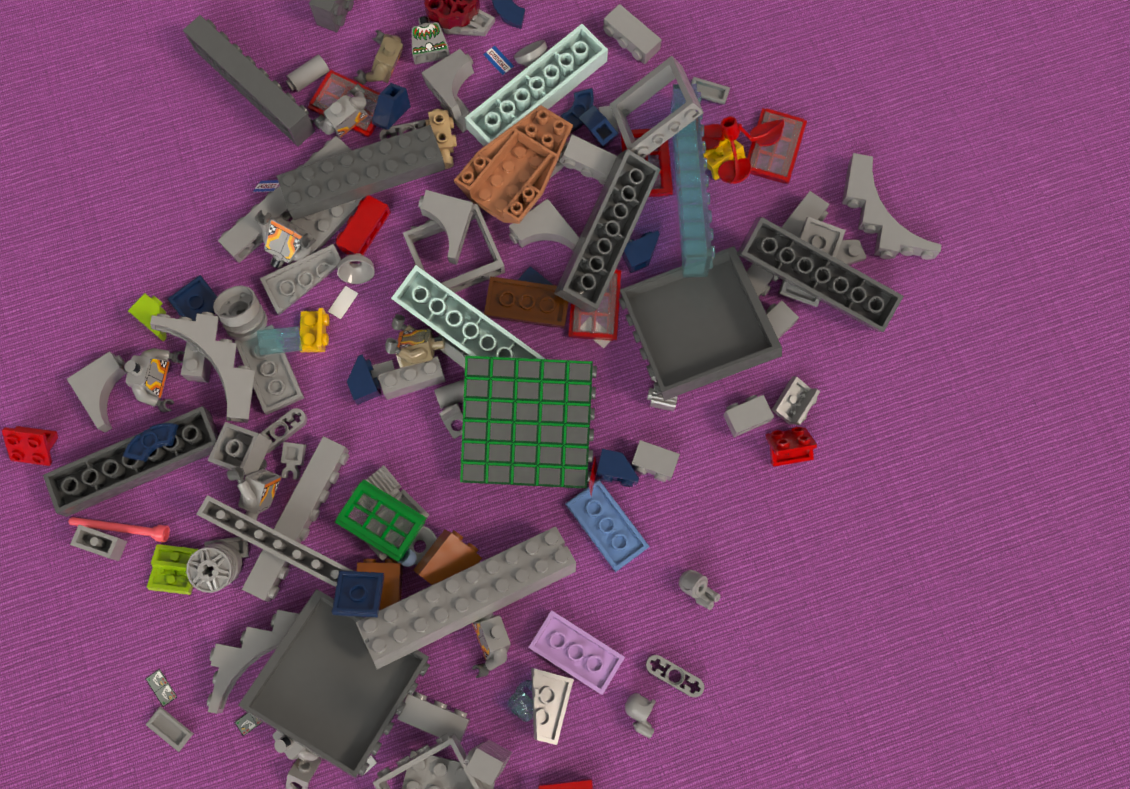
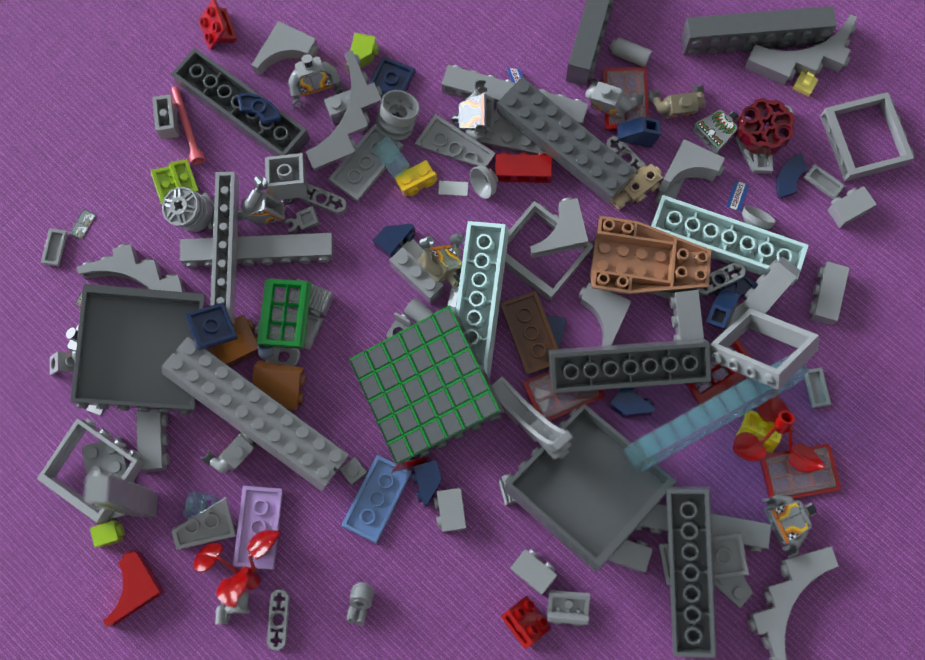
camera: 65 degrees right, 0 degrees up
(570, 108) = (727, 280): none -> light grey beam
(570, 533) = (353, 471): none -> light grey plate
(601, 73) = (771, 286): none -> light grey brick
(631, 696) = (232, 588): none -> red plant
(643, 329) = (548, 435): none -> light grey arch
(814, 175) = (789, 521): none -> torso

